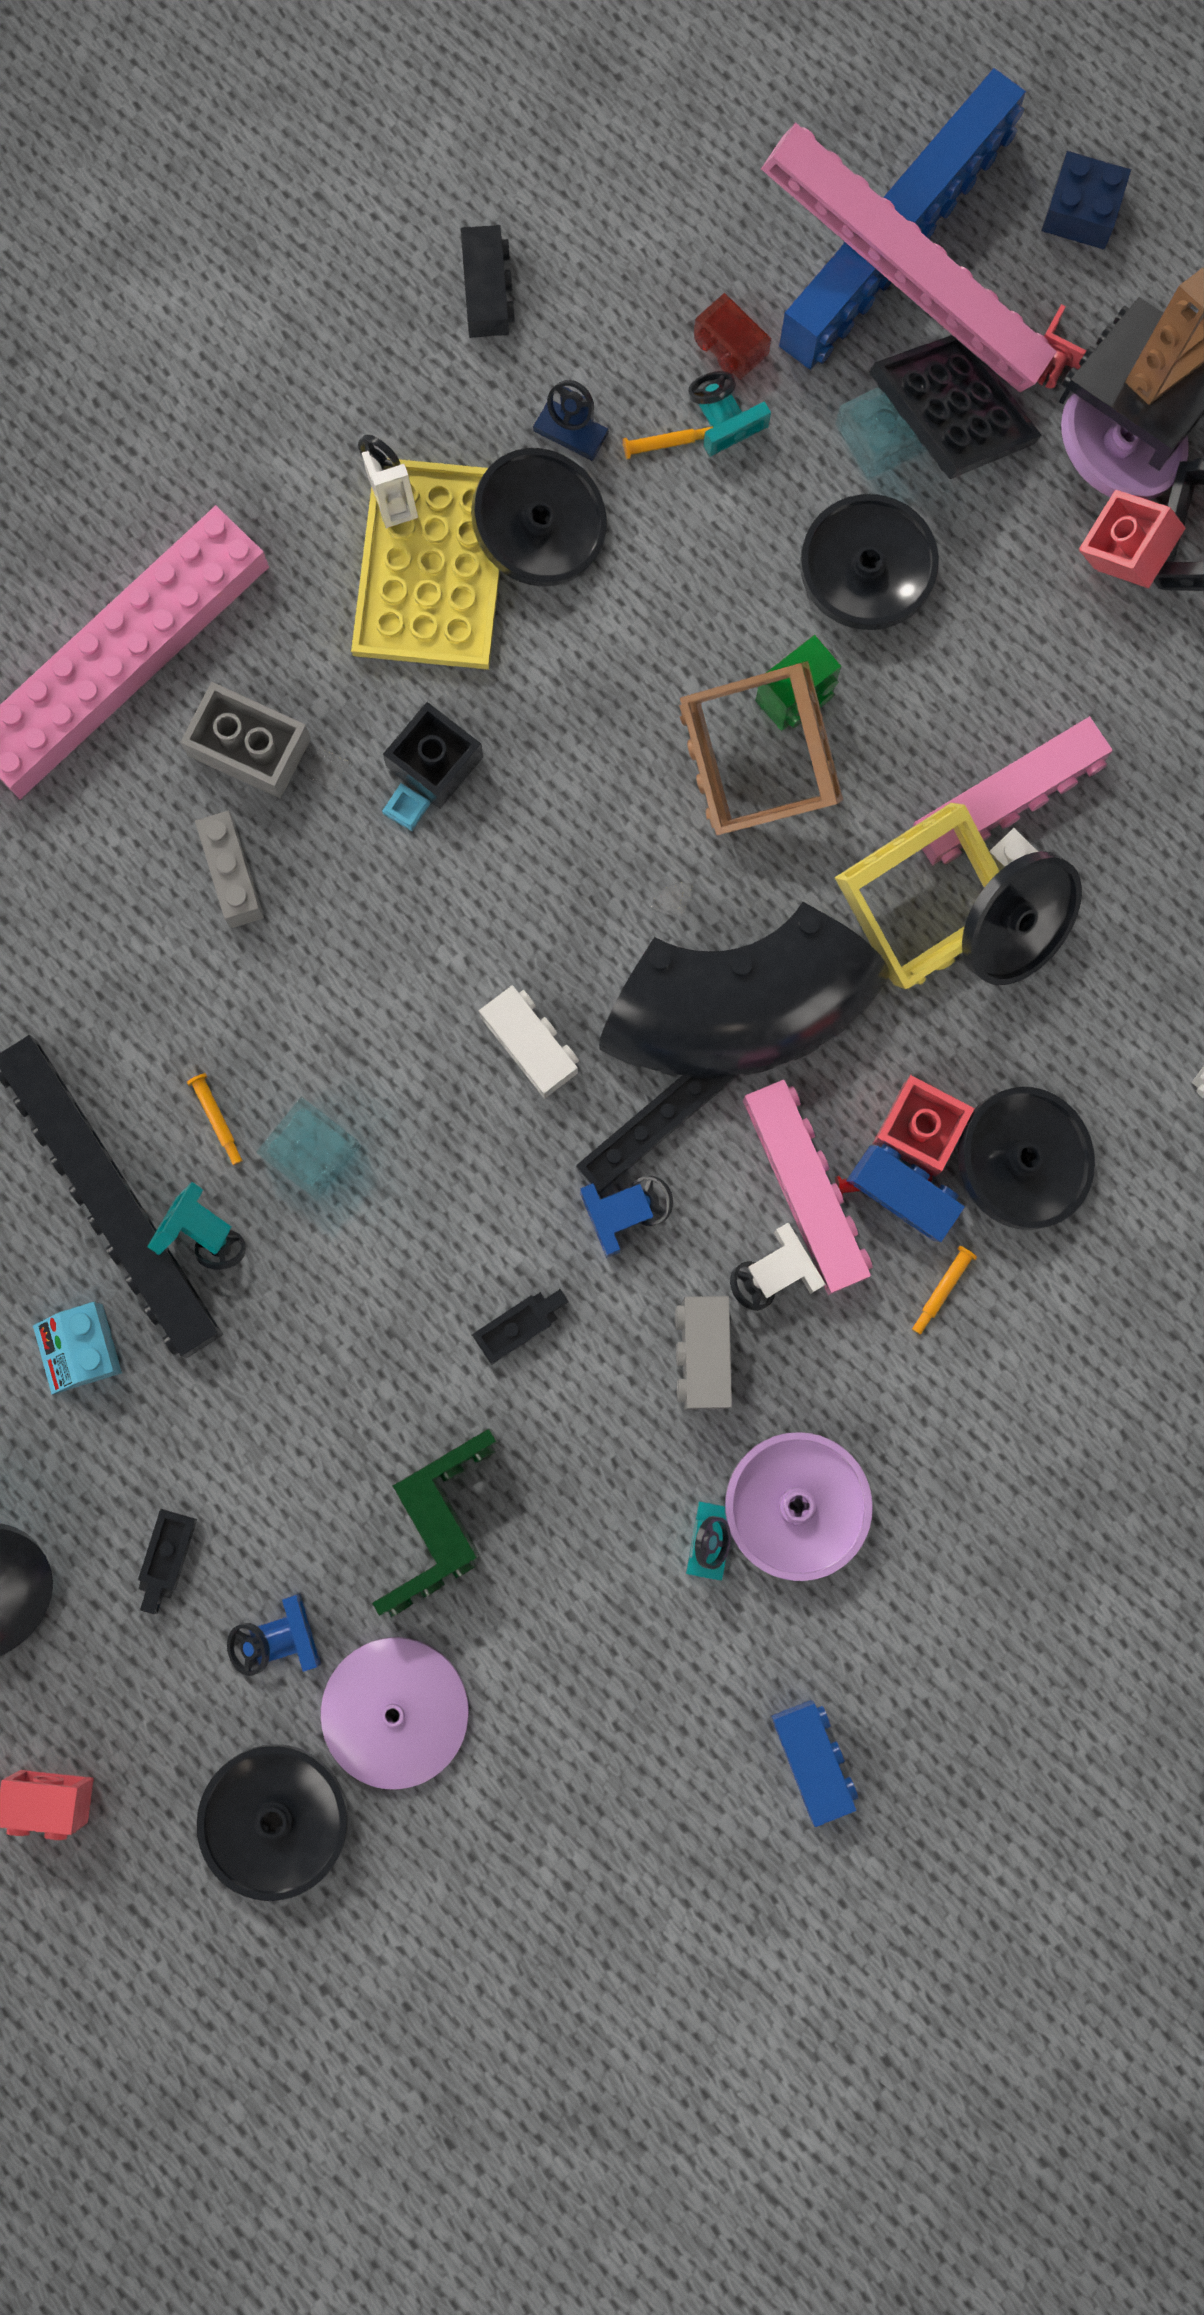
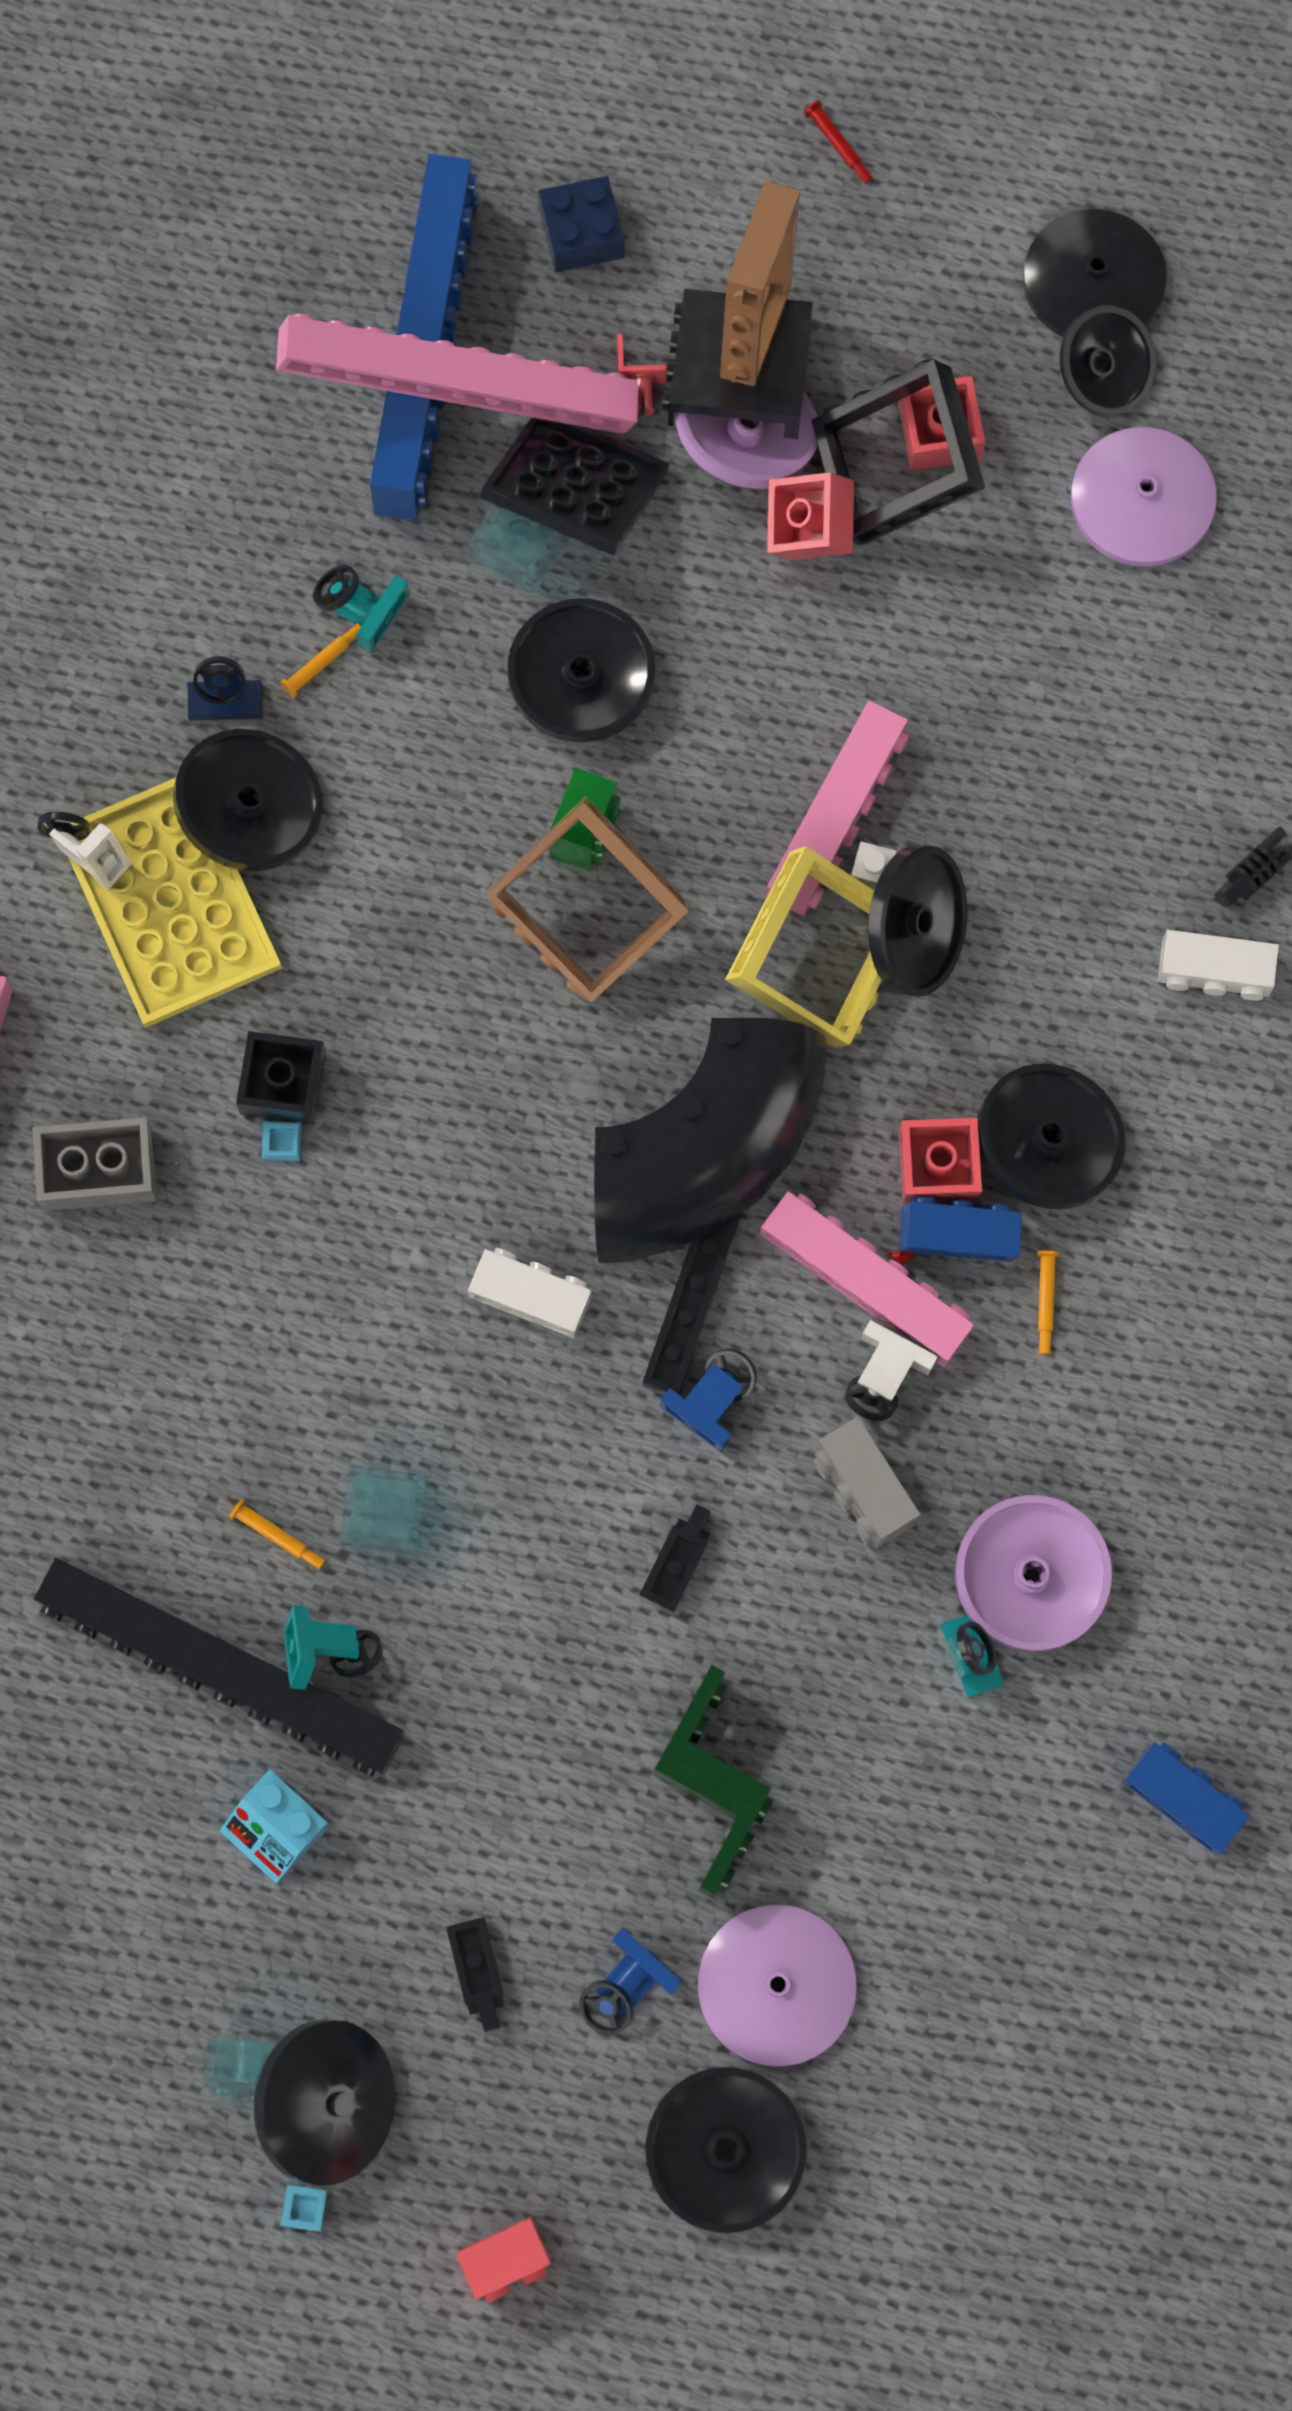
camera: 30 degrees left, 5 degrees down
(229, 869) = (151, 1294): light grey brick -> none
(486, 281) = (62, 605): black brick -> none
(731, 336) = (326, 530): clear red brick -> none

